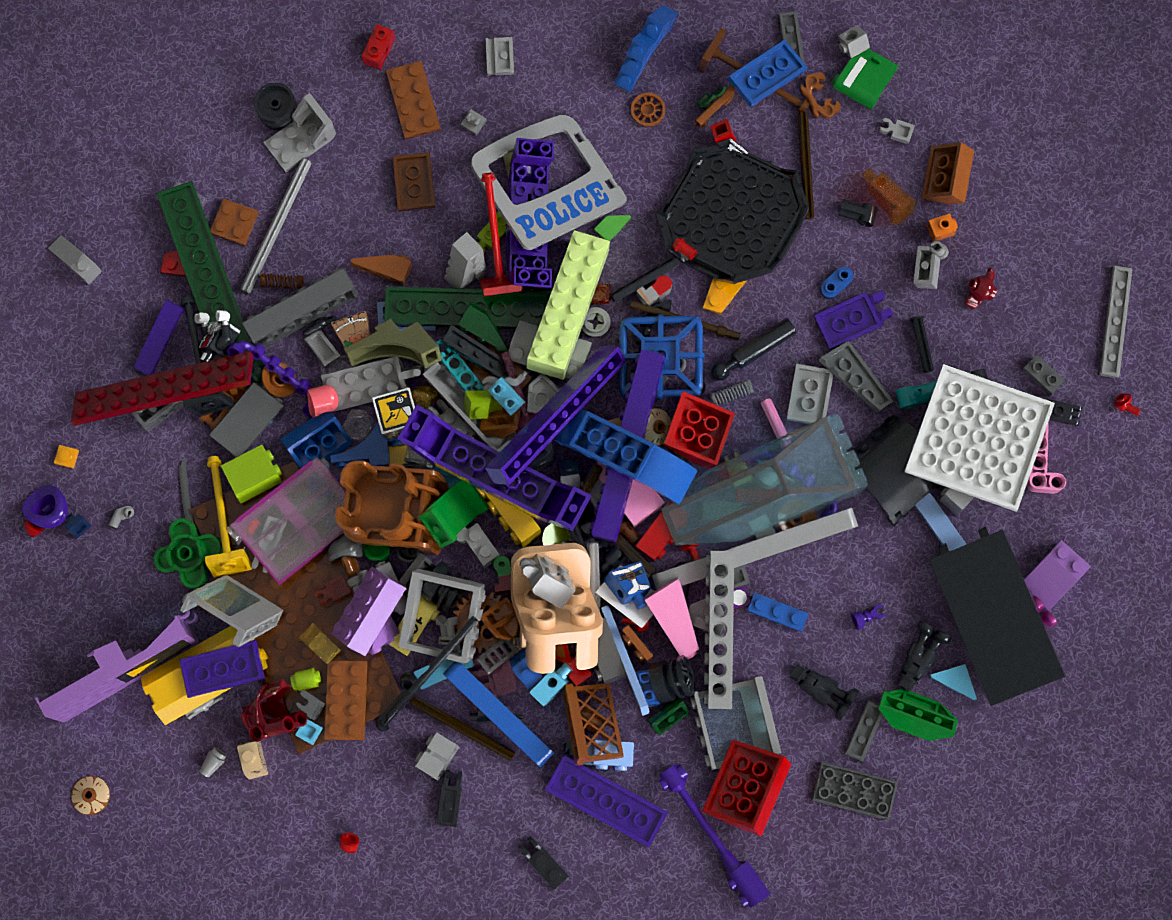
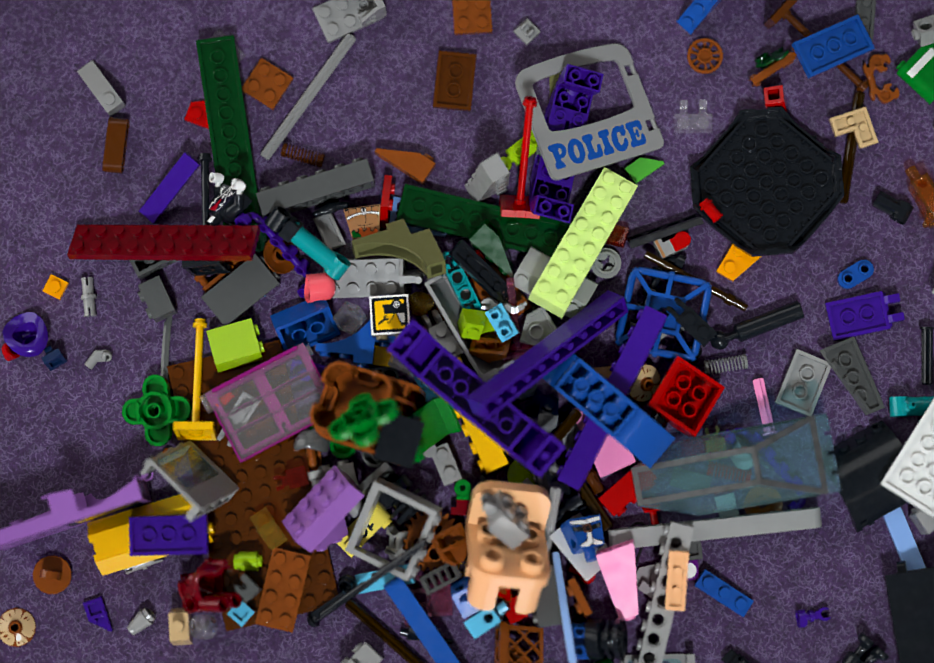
camera: 10 degrees right, 5 degrees up
(98, 308) = (115, 145): none -> reddish brown beam
(100, 459) = (88, 296): none -> light grey pin
(116, 735) = (52, 574): none -> dark orange tile
(167, 446) = (157, 299): none -> dark grey brick
(168, 764) = (97, 613): none -> dark purple tile
(275, 753) = (203, 626): none -> clear head
(285, 351) = (292, 230): none -> teal piece
(371, 307) = (386, 201): none -> red wing
(388, 510) = (363, 419): none -> green plant
(428, 524) = (400, 440): none -> black panel
(649, 174) = (692, 123): none -> clear plate
(690, 358) = (693, 323): none -> black hinge
(728, 606) = (676, 580): none -> light nougat tile
(807, 140) = (856, 122): none -> tan tile

